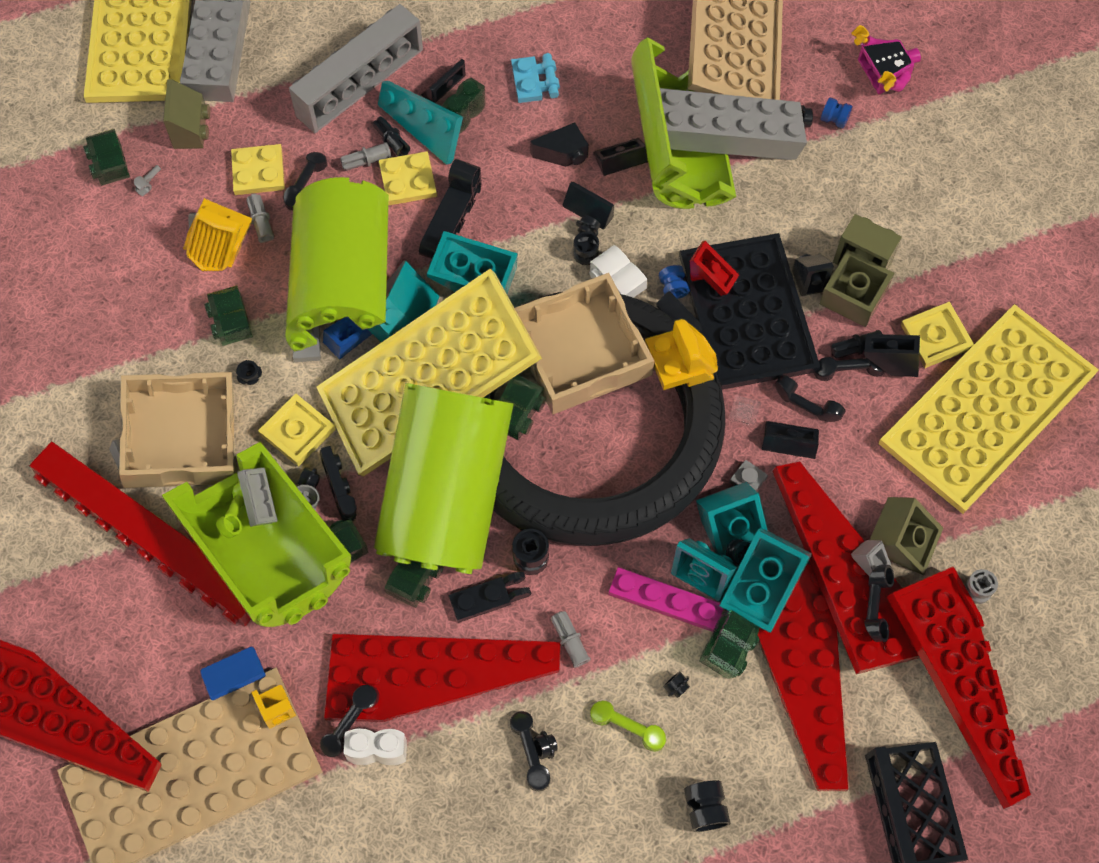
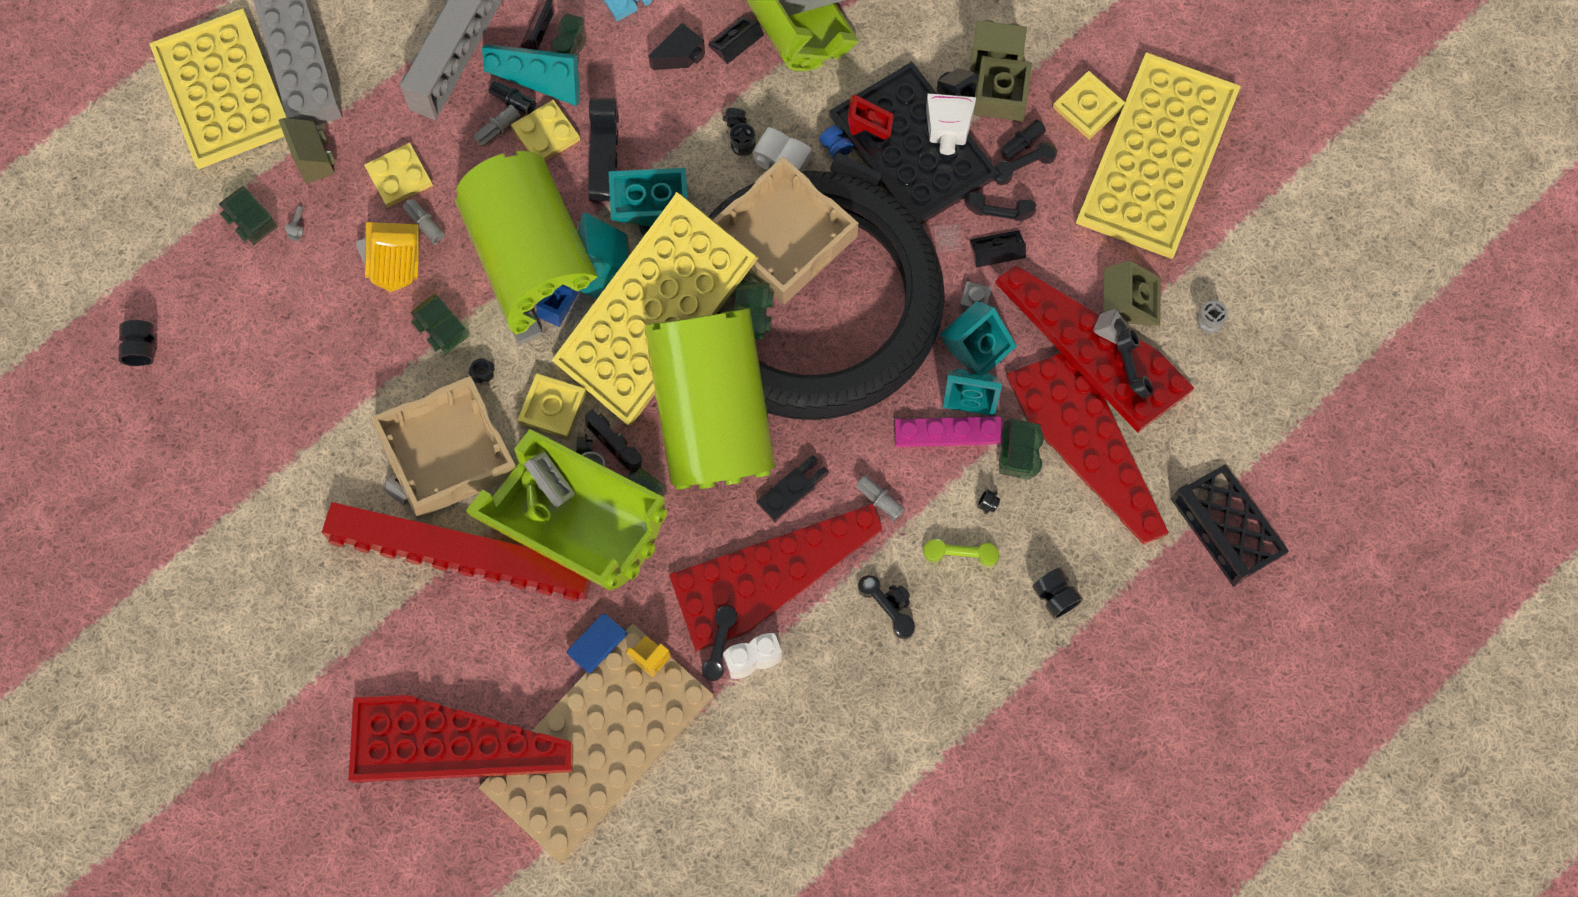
camera: 20 degrees left, 5 degrees up
(315, 163) = (445, 187): black bar -> none
(411, 582) = (718, 503): clear green brick -> none
(530, 551) = (814, 434): black wheel -> none
(584, 202) = (725, 96): black slope -> none
(682, 356) = (878, 209): yellow piece -> none
(733, 549) = (996, 365): black bush -> none
(765, 579) = (1029, 380): teal slope -> none
(791, 299) = (949, 120): none -> white torso
(894, 353) = (1059, 136): black slope -> none
(952, 647) = (1203, 372): red wing -> none

